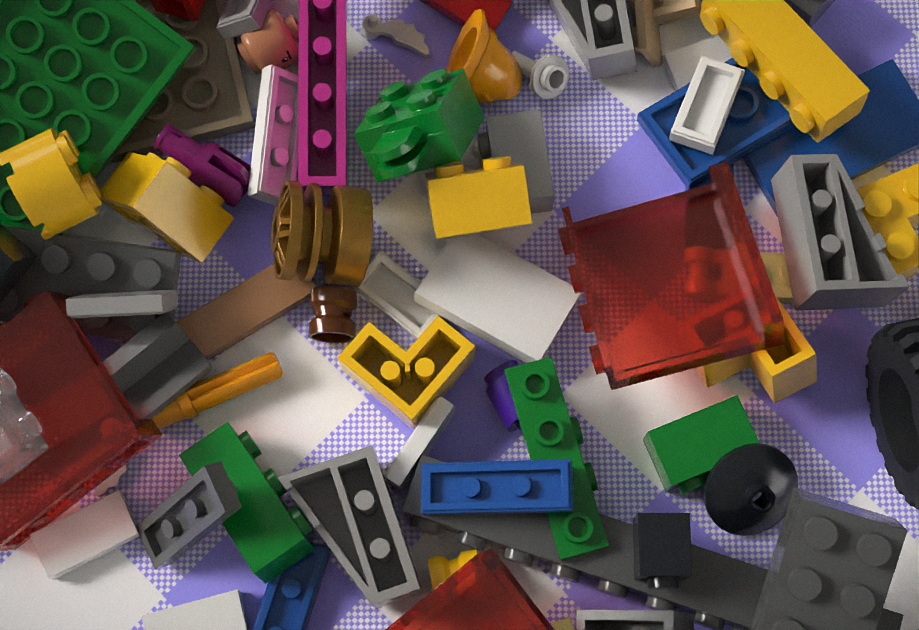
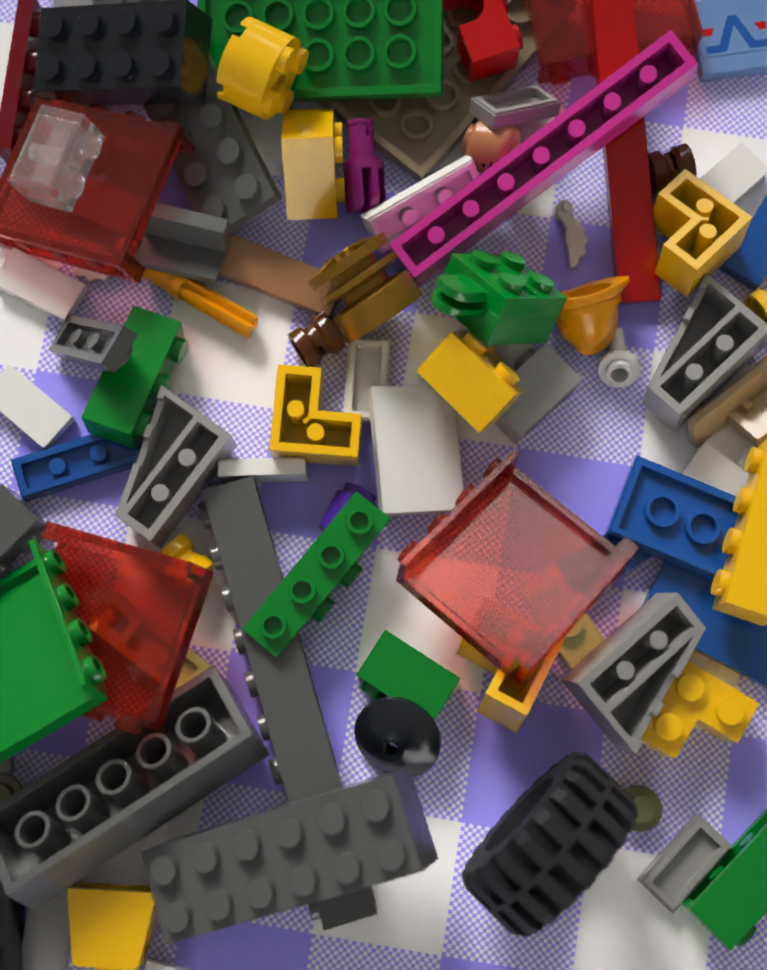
camera: 50 degrees right, 5 degrees up
(121, 303) = (209, 185): light grey tile -> none
(497, 487) = (261, 546): blue tile -> none
(662, 549) = (296, 698): black brick -> none
(706, 105) = (680, 502): white tile -> none

